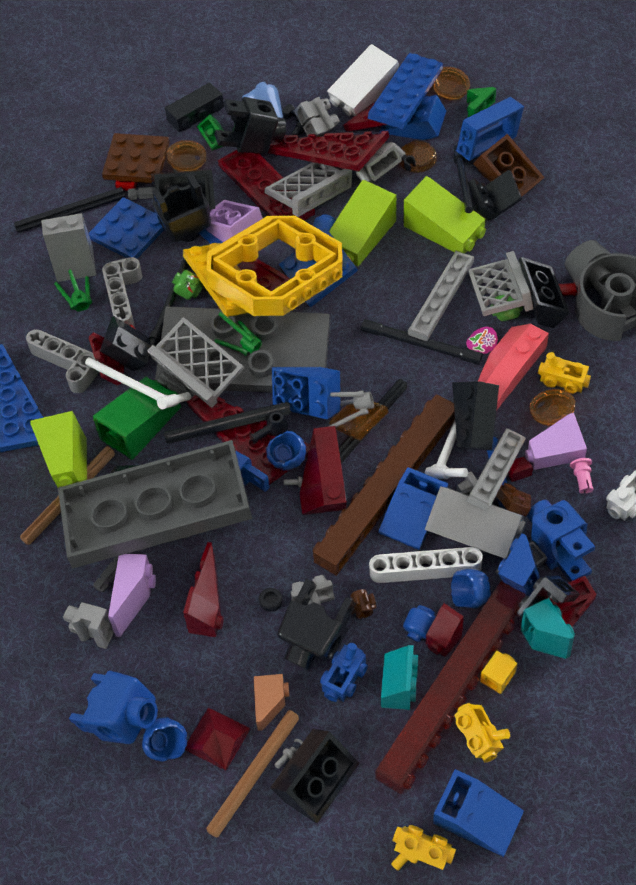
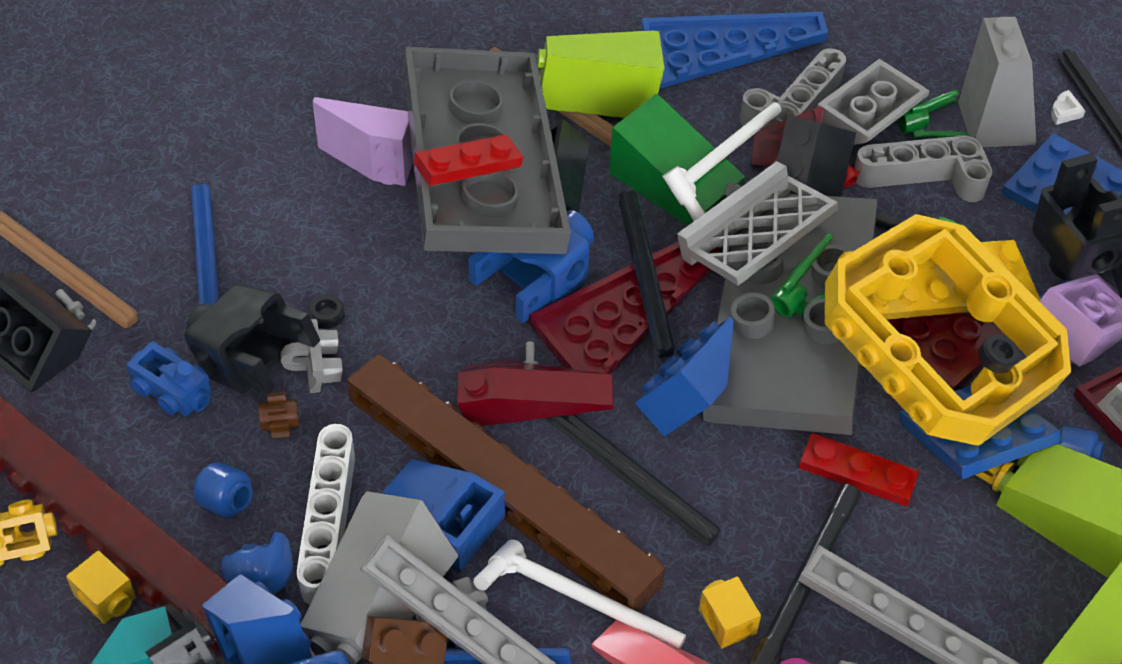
camera: 90 degrees right, 5 degrees down
(77, 315) = (872, 101): none -> light grey slope
(90, 622) = (331, 85): light grey hips -> none
(117, 708) = (179, 111): blue piece -> none
(164, 740) = (136, 168): blue hair -> none
(180, 499) = (467, 159): none -> red plate
(202, 603) = (335, 225): dark red wedge -> none
(217, 739) = (124, 233): dark red slope -> none
(224, 684) = (204, 244): none -> blue axle
(269, 698) = (160, 288): nougat slope -> none
(272, 427) = (634, 331): black bar -> none
(286, 451) = (567, 331): blue hair -> none
(296, 238) = (998, 353): none -> black tile
(347, 322) = (859, 468): none -> red plate
(361, 400) = (655, 446): light grey plant -> none
(361, 425) = (638, 453): clear orange tile -> none
(399, 678) = (129, 445): teal slope -> none
(444, 631) = (192, 517): dark red slope -> none
(450, 369) = (729, 611): none -> yellow brick
(475, 414) = (605, 617): black wedge -> none

